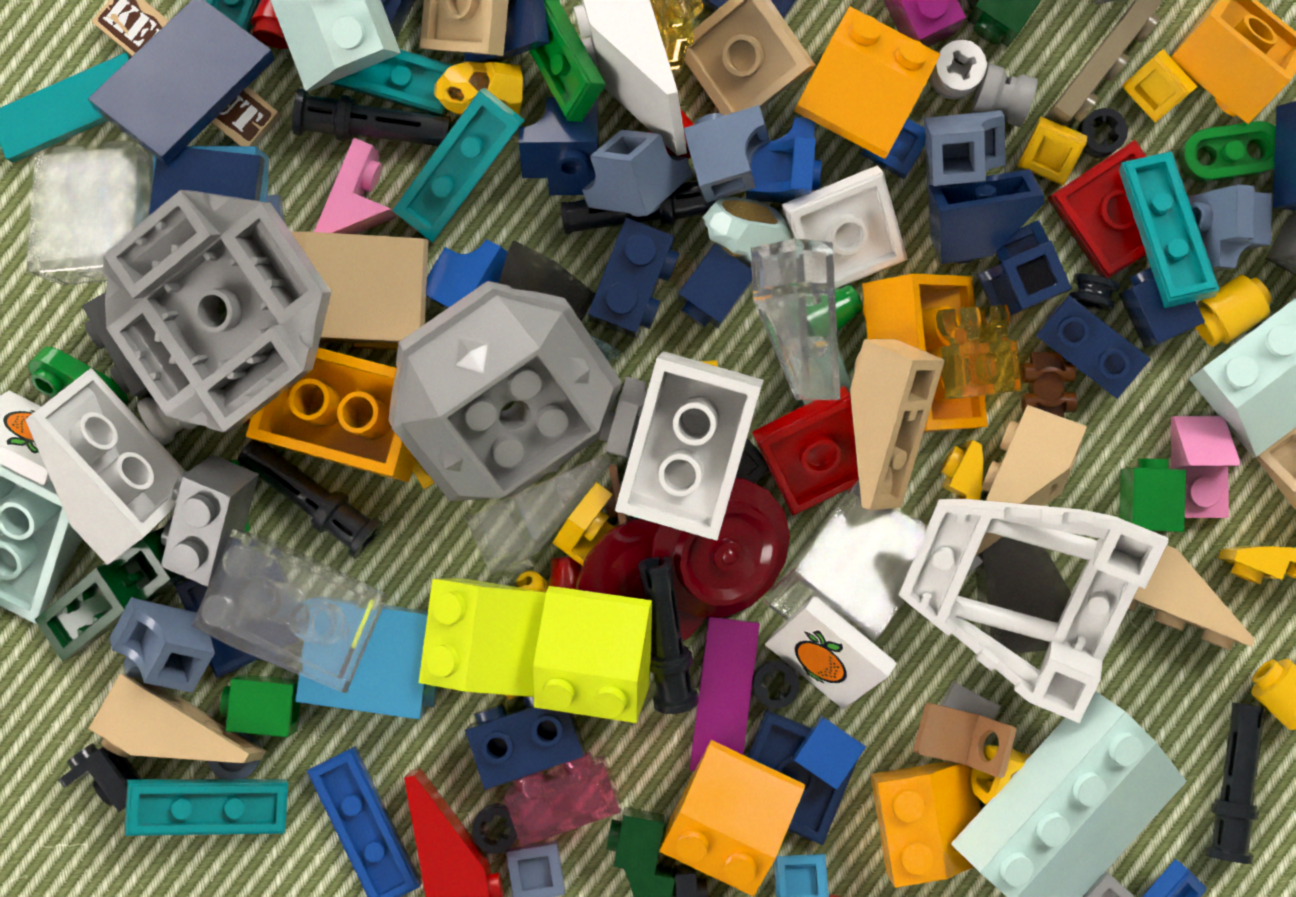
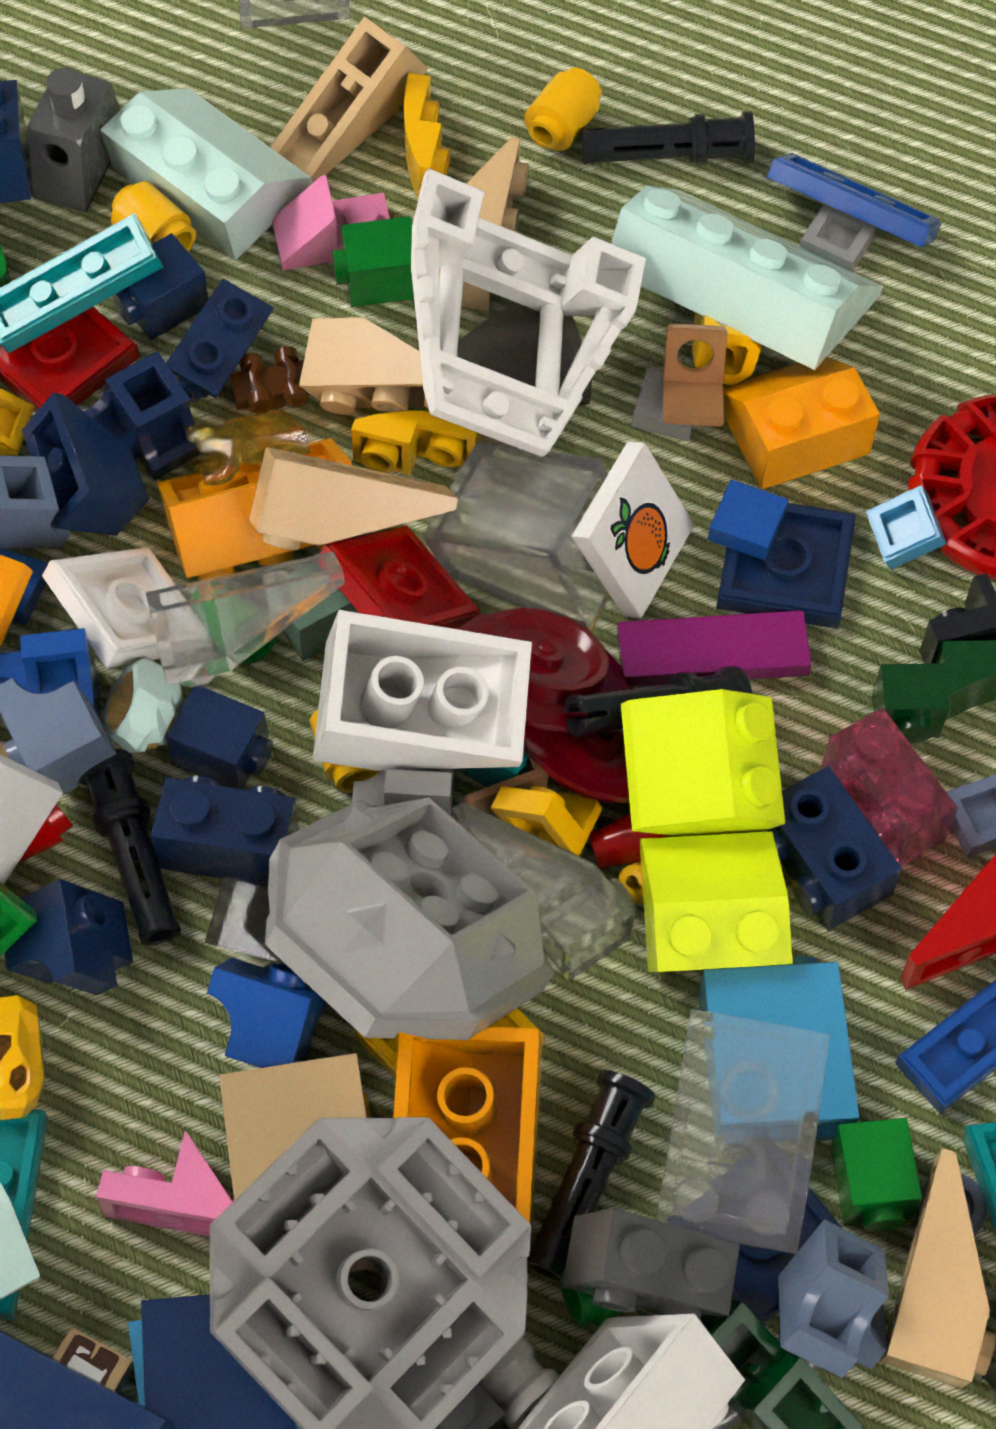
camera: 105 degrees left, 25 degrees down
(346, 118) = (68, 1229): black pin -> none
(458, 164) = (113, 1060): teal plate -> none
(480, 837) = (961, 859): black bush -> none
(634, 174) = (96, 837): sand blue brick -> none
(732, 818) = (853, 597): light orange slope -> none
(789, 677) = (684, 578): black bush -> none
(1094, 291) = (149, 343): black bush -> none
(1232, 222) = (53, 224): sand blue brick -> none

